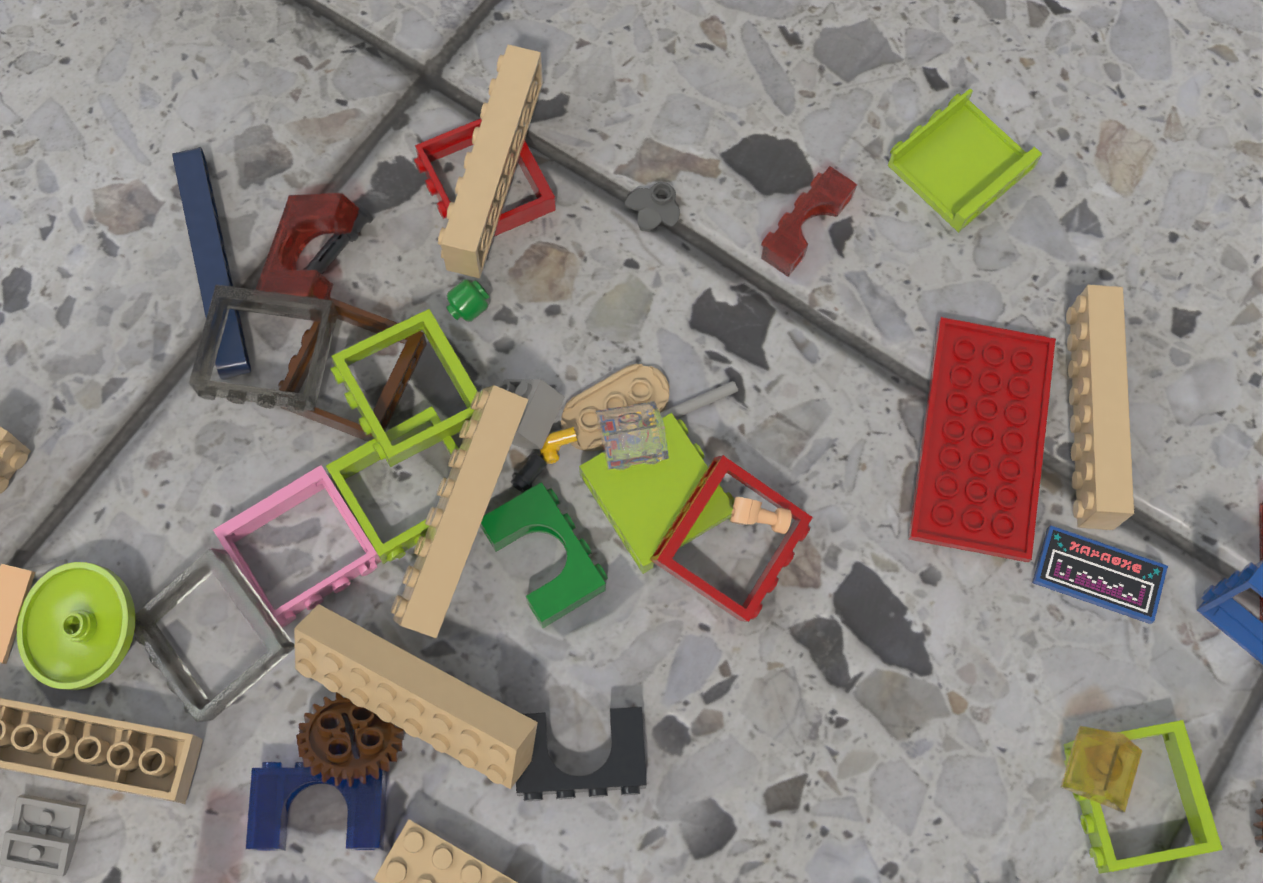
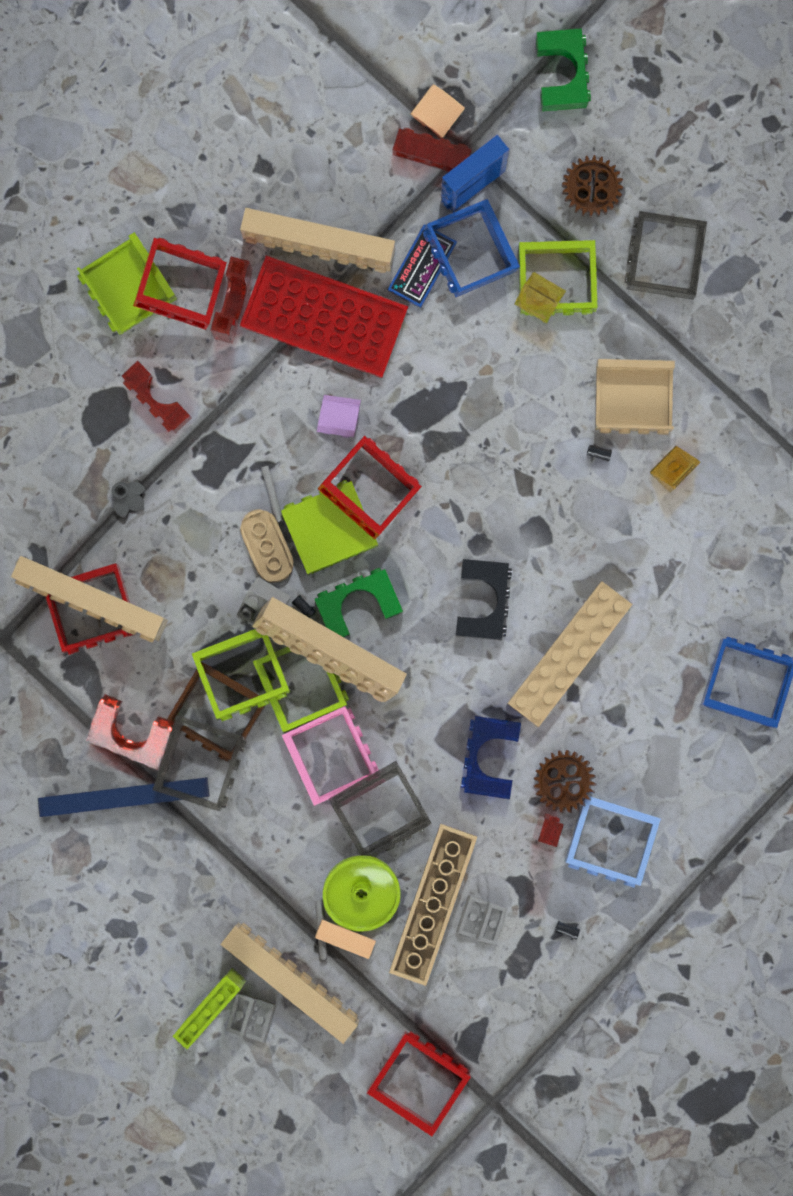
camera: 75 degrees left, 15 degrees up
(320, 744) = (457, 750): reddish brown gear -> none
(337, 242) = (140, 729): black pin -> none
(415, 696) = (438, 692): tan brick -> none
(467, 300) = (179, 630): green head -> none
(555, 441) = (285, 585): yellow arm -> none
(632, 435) = (294, 537): clear slope -> none
(749, 511) = (359, 474): light nougat leg -> none
(835, 482) = (339, 416): none -> lavender slope
(940, 216) = (169, 310): none -> red window
(1010, 305) = (226, 322): none -> clear red arch
(1220, 650) = (496, 233): none -> blue window

